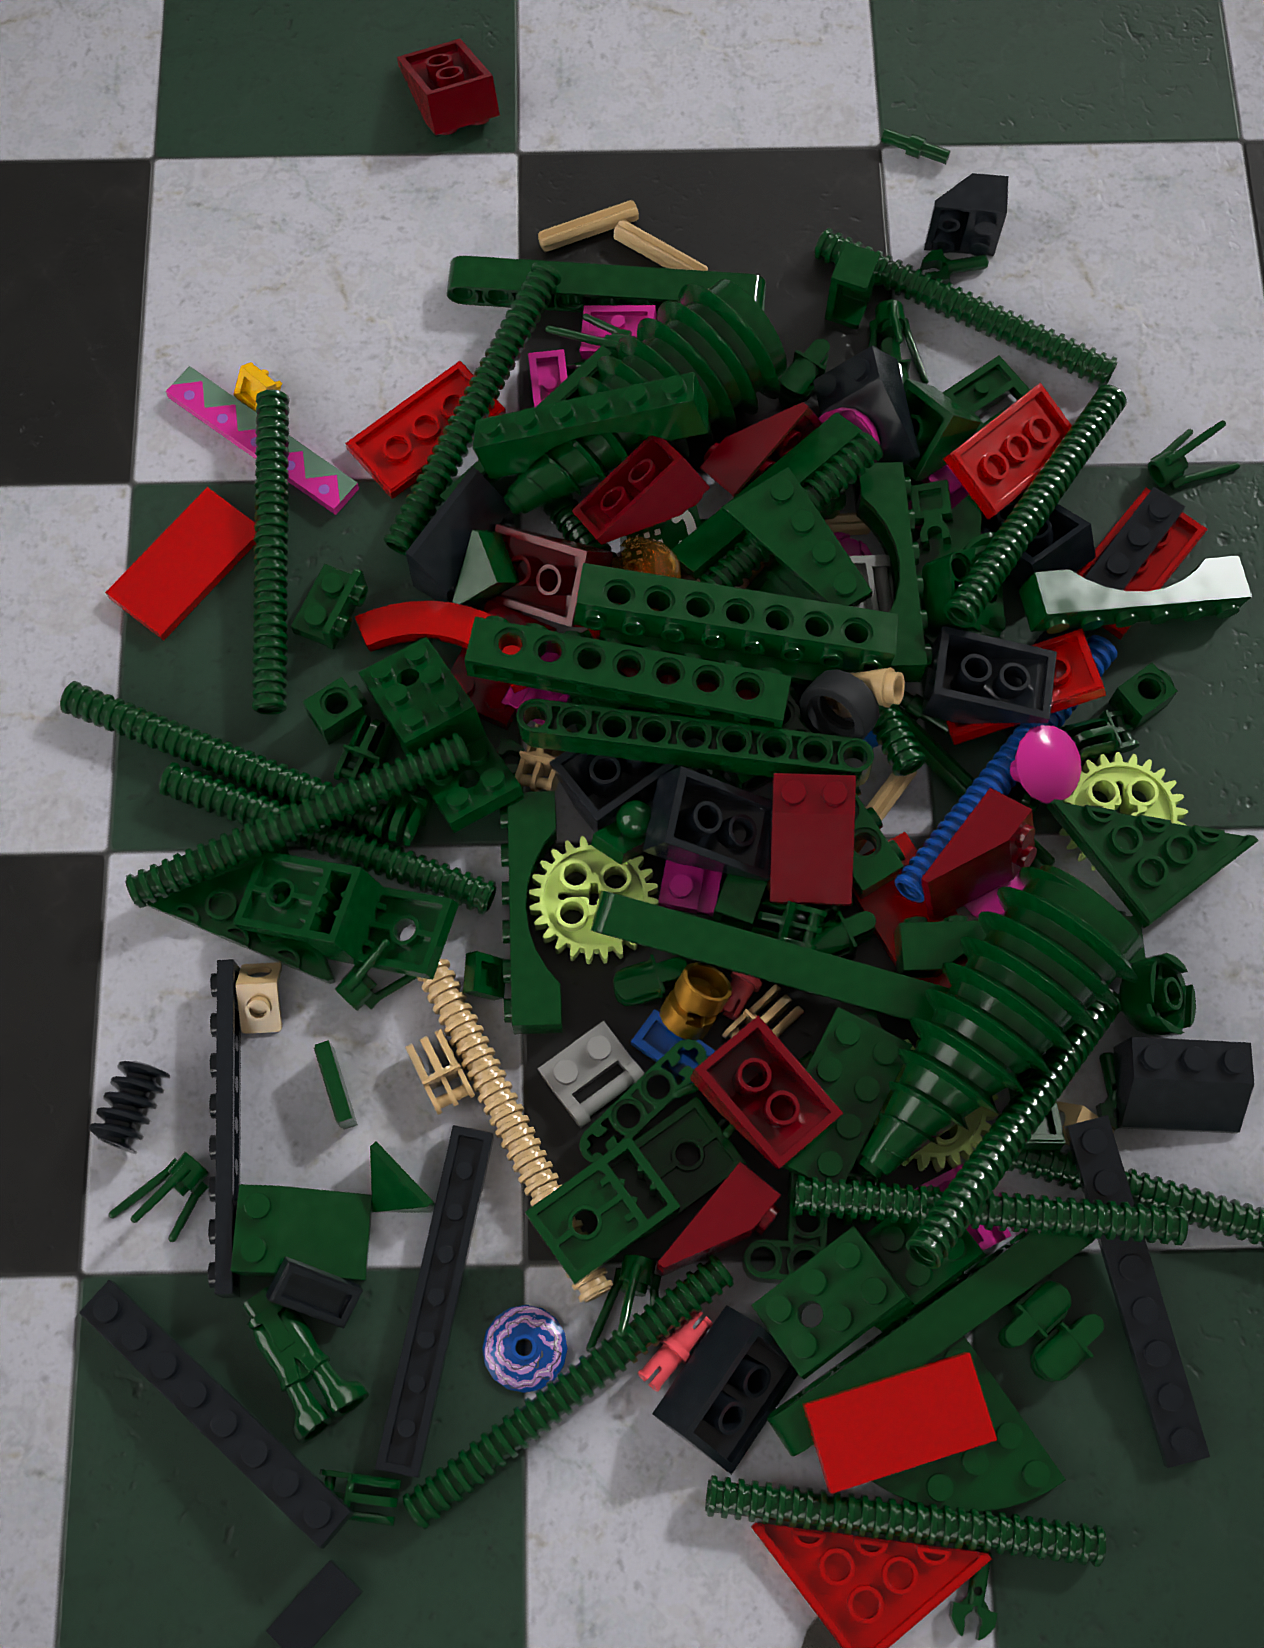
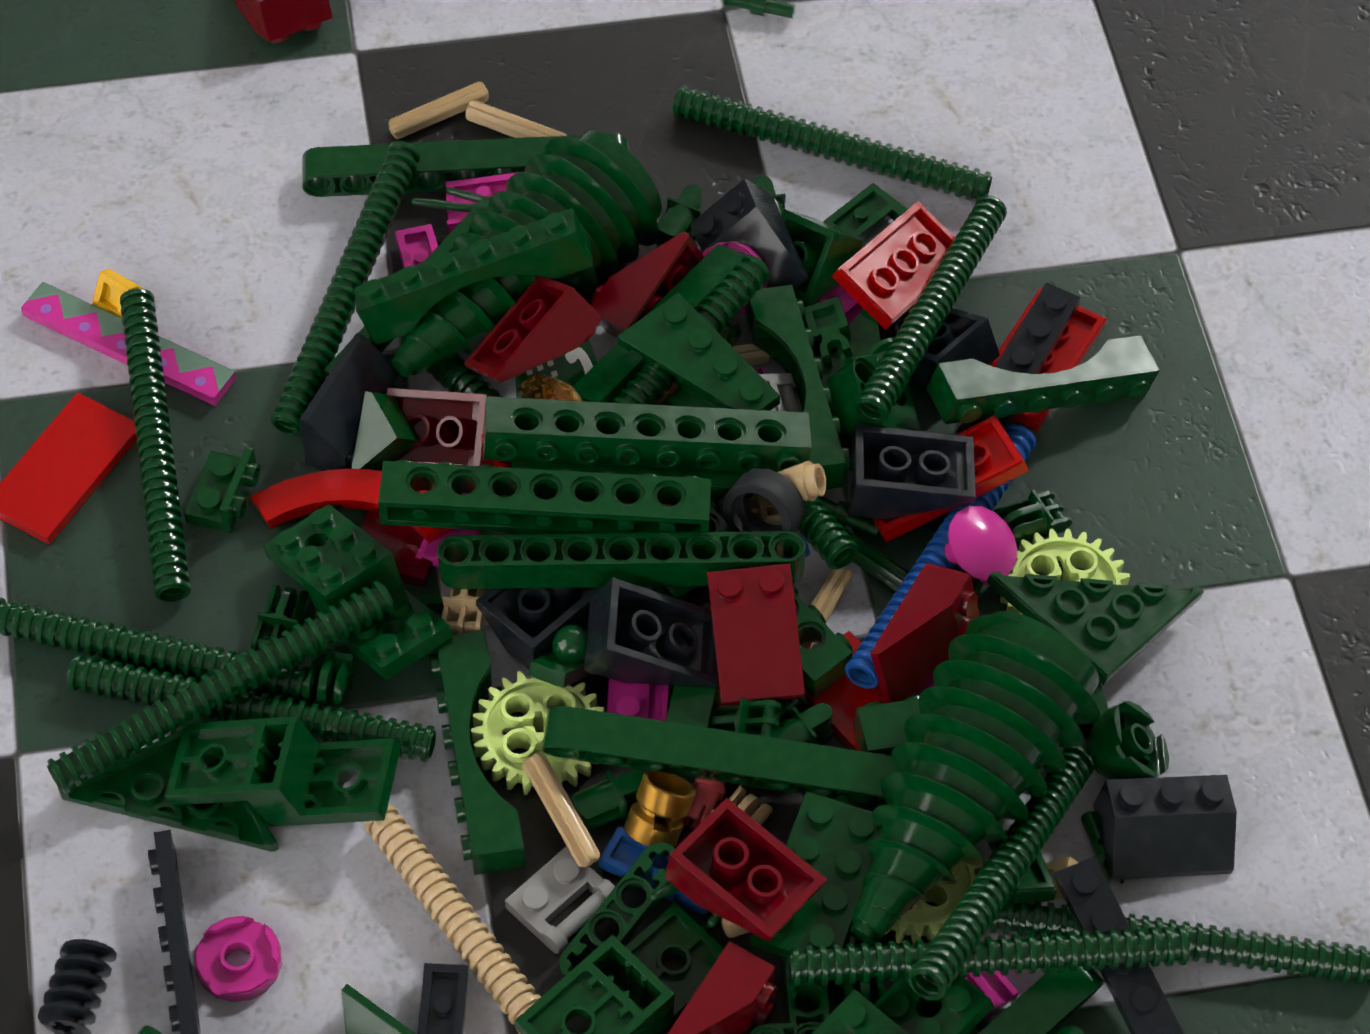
camera: 10 degrees left, 15 degrees down
(259, 998) = (201, 873): tan bracket -> none
(299, 1108) = (243, 981): none -> dark pink tile
(335, 725) = (237, 599): dark green brick -> none
(335, 1085) = (294, 942): dark green tile -> none
(357, 986) = (305, 844): dark green plant -> none
(403, 438) = (276, 327): red tile -> none
(441, 1075) = (403, 916): tan arm -> none
(484, 976) = (436, 818): dark green plate -> none
(602, 989) = (561, 810): none -> tan axle
(852, 285) = (715, 133): dark green panel -> none
(891, 322) = (760, 162): dark green plant -> none
(948, 267) = (808, 111): dark green bar -> none
(969, 216) = (822, 59): black slope -> none
(1137, 707) = (1069, 488): dark green brick -> none
(1171, 463) = (1061, 263): dark green plant -> none

